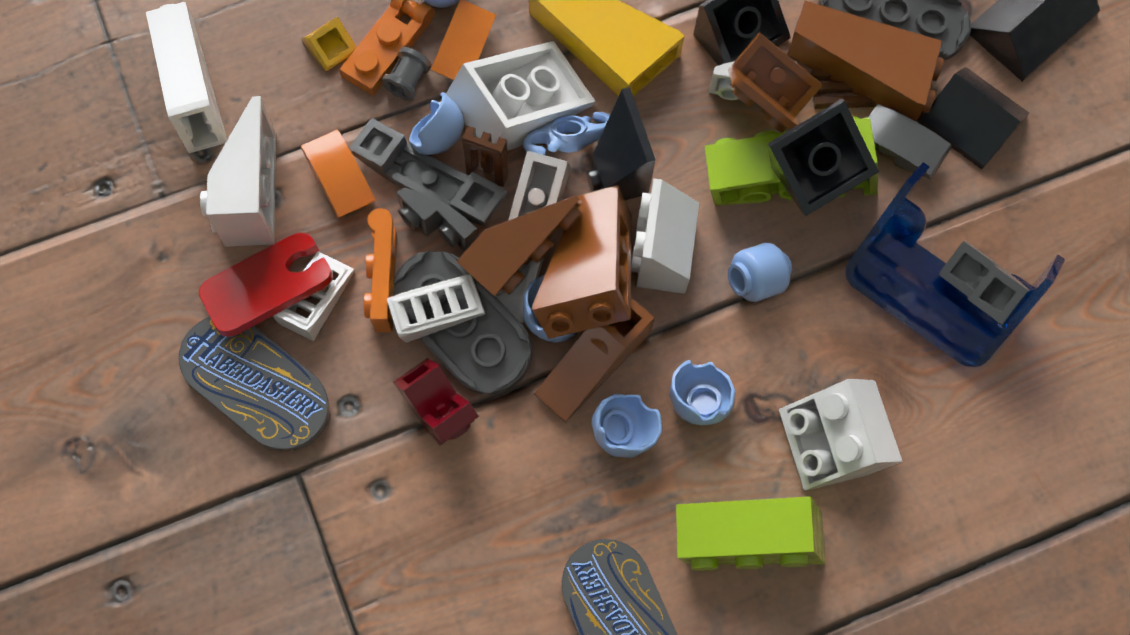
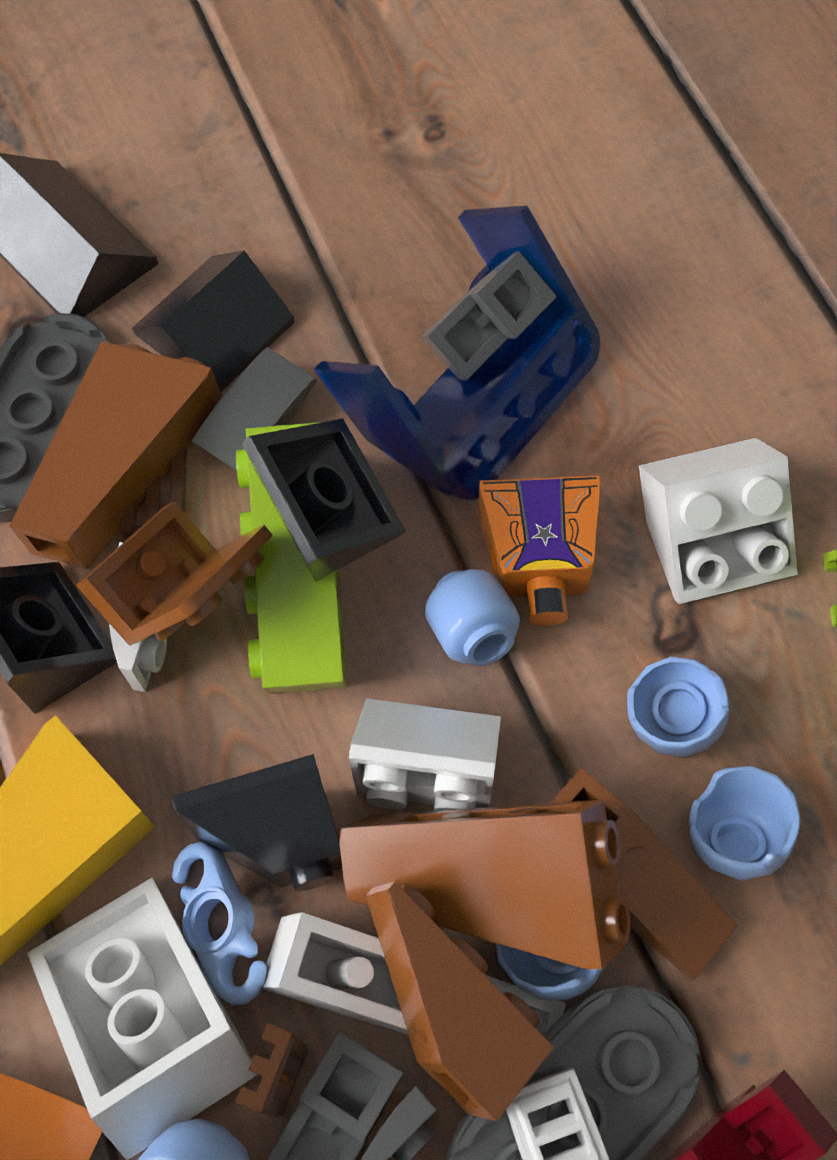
camera: 85 degrees left, 5 degrees down
(817, 318) = (541, 539): none -> torso

